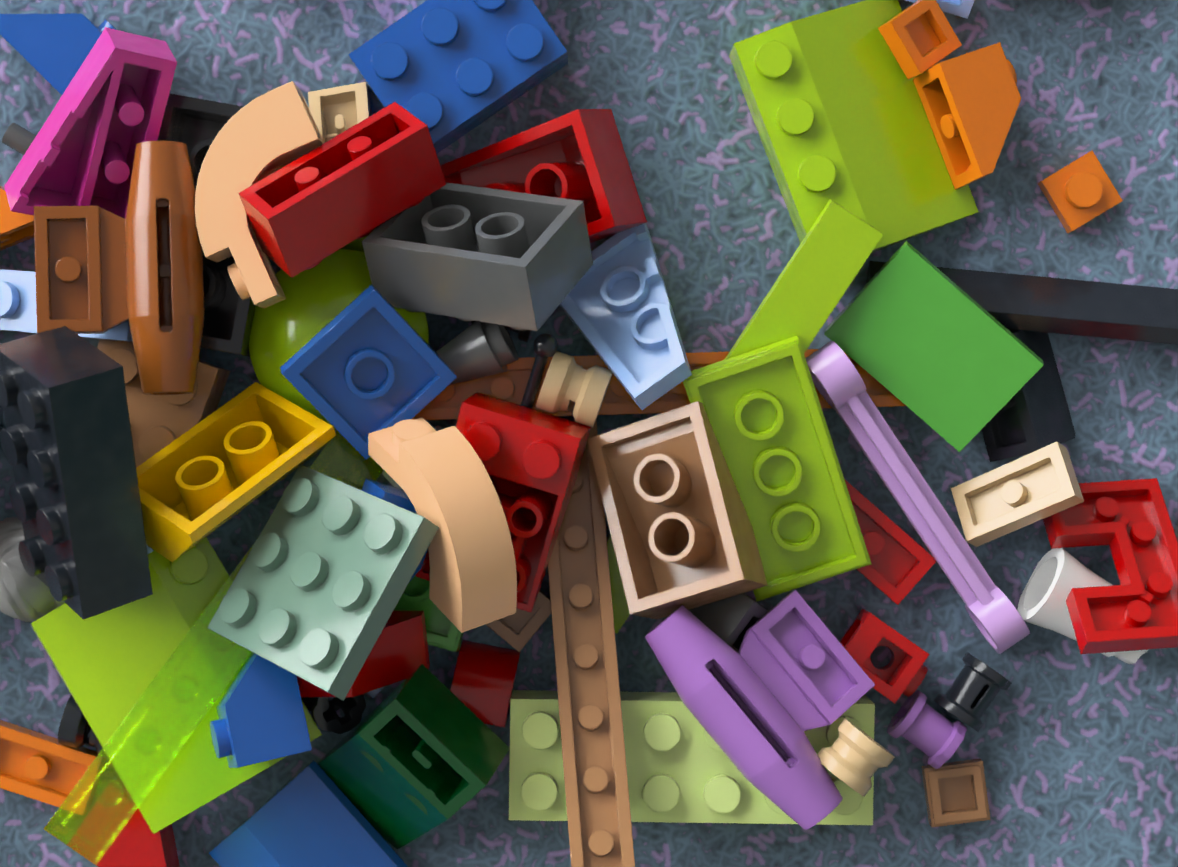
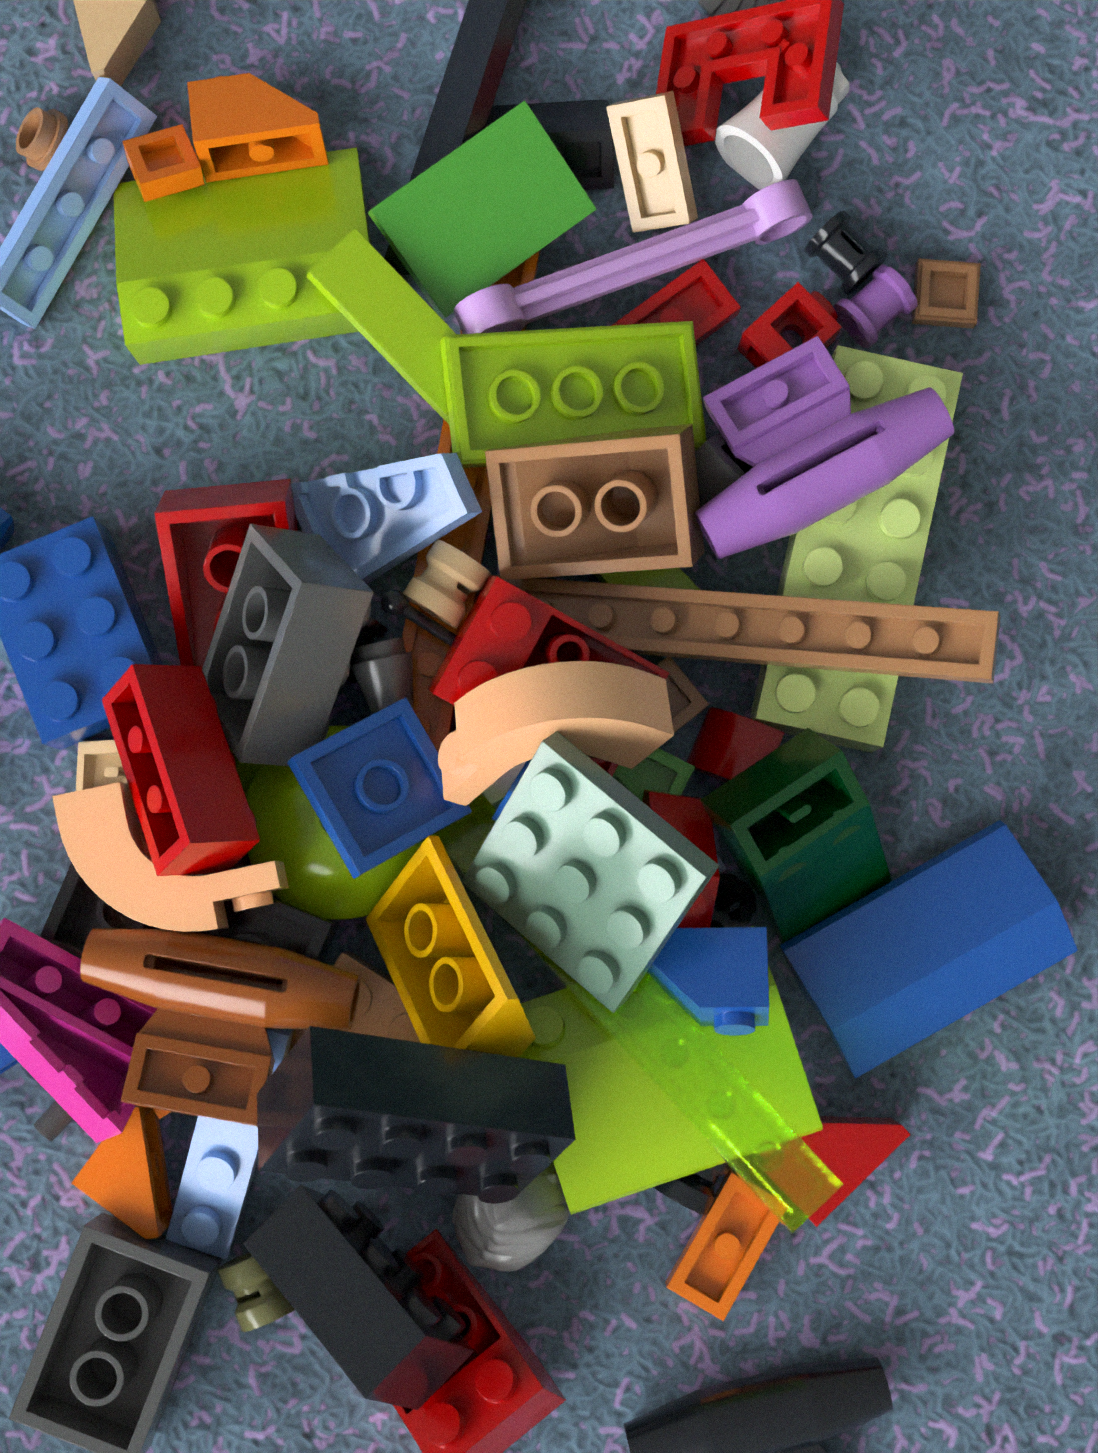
camera: 80 degrees left, 5 degrees down
(854, 757) = (888, 367): tan wheel -> none
(1080, 192) = (359, 43): orange plate -> none

